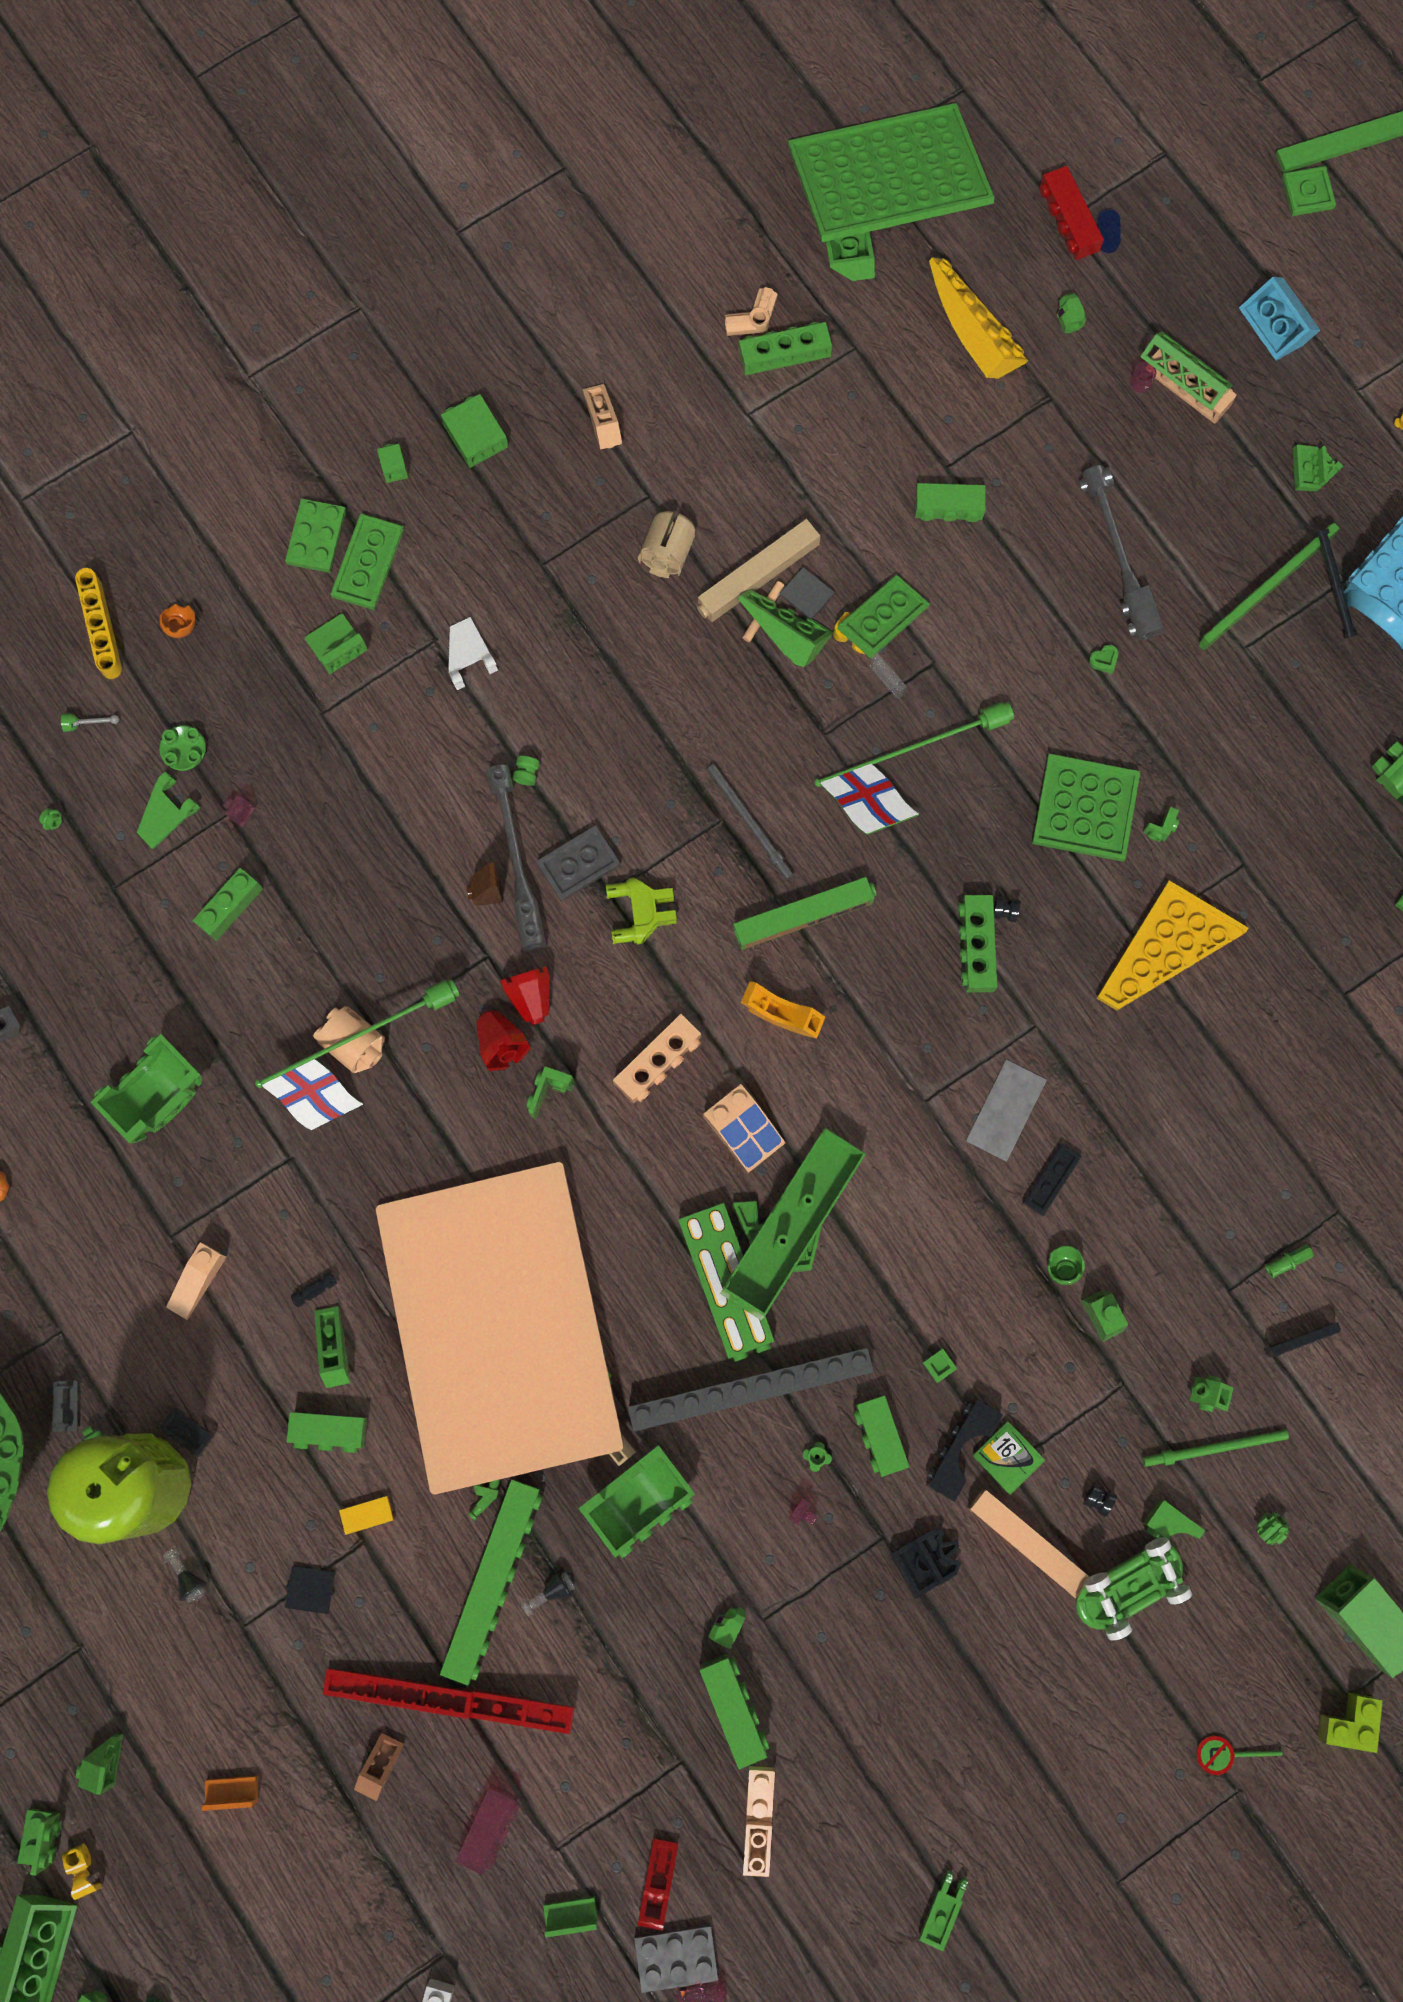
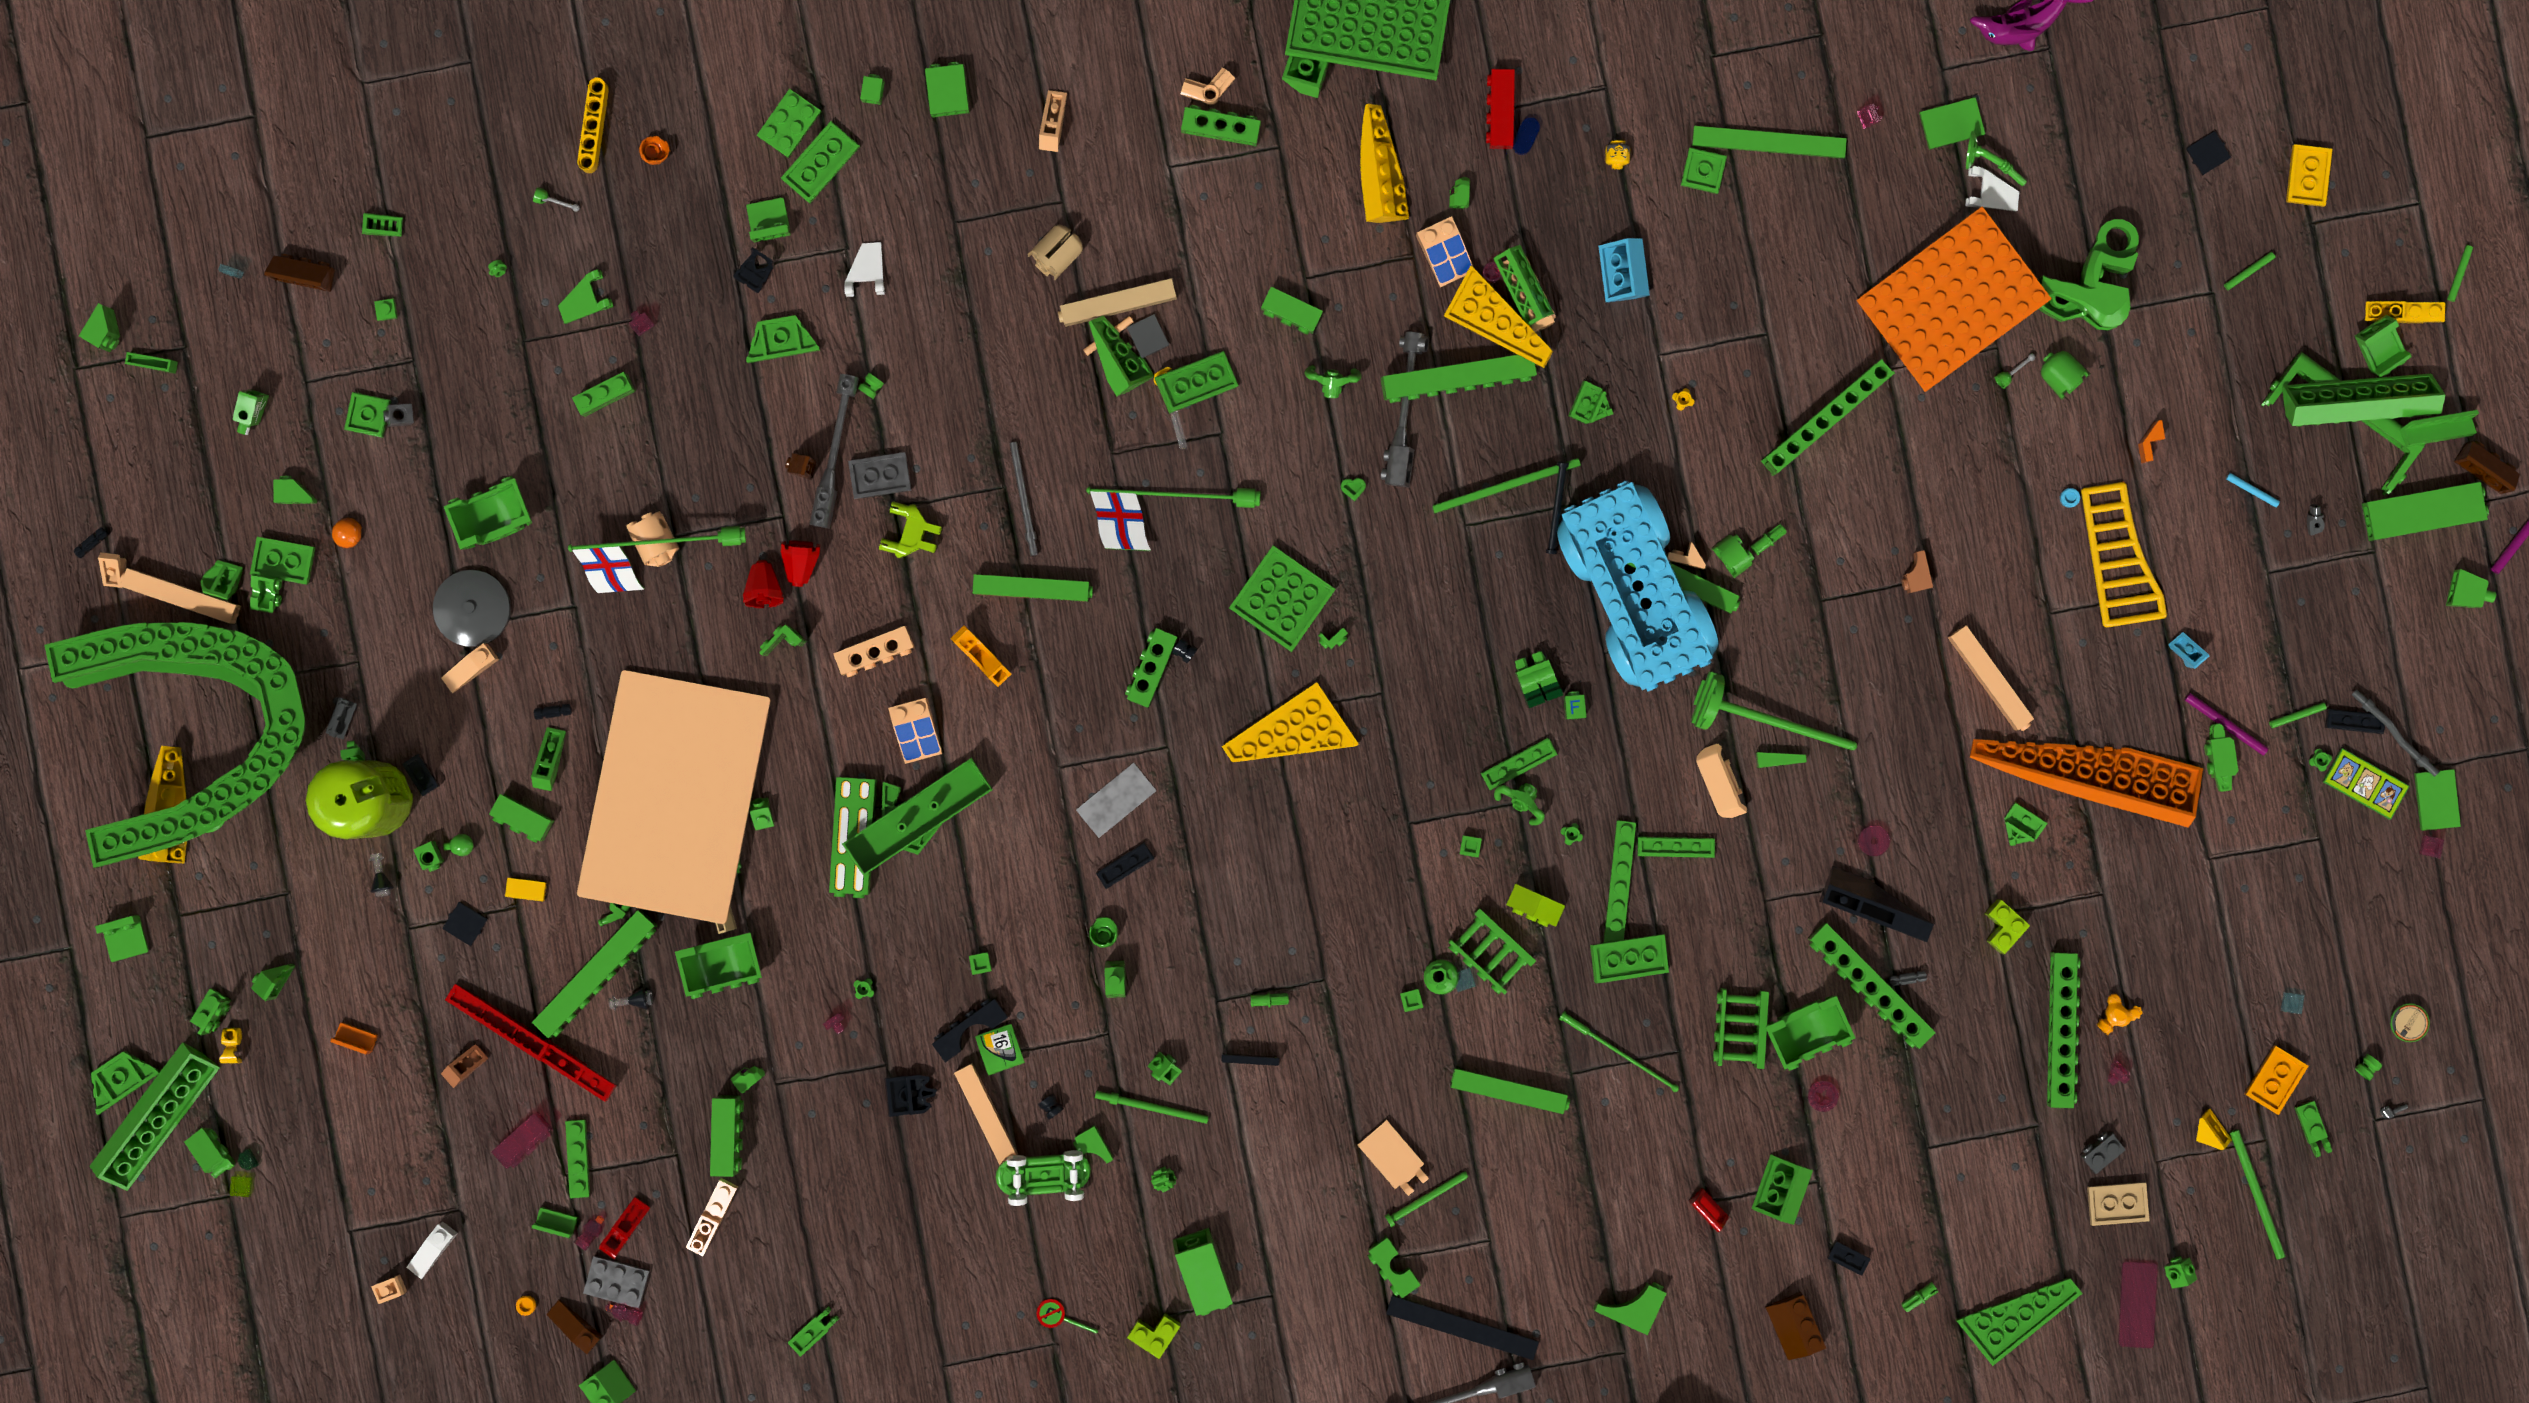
camera: 20 degrees right, 10 degrees up
(170, 1211) = (471, 608): none -> dark grey dish
(182, 747) = (618, 253): bright green dish -> none
(223, 1524) = (421, 852): none -> bright green brick
(266, 1495) = (460, 845): none -> bright green piece
(339, 710) = (750, 275): none -> black piece
(403, 763) = (780, 339): none -> bright green wing
(564, 1822) = (577, 1158): none -> bright green plate
(608, 1302) = (761, 813): none -> bright green bracket
(619, 1903) = (592, 1229): none -> clear pink piece
(750, 1389) = (835, 921): dark grey brick -> none
(881, 1436) = (915, 994): bright green brick -> none
(1030, 554) = (1332, 380): none -> bright green piece
(1082, 375) = (1445, 251): none -> slope
(1162, 493) = (1457, 376): none -> bright green brick
(1167, 417) = (1490, 316): none -> yellow wing
(1213, 208) = (1617, 154): none -> yellow head

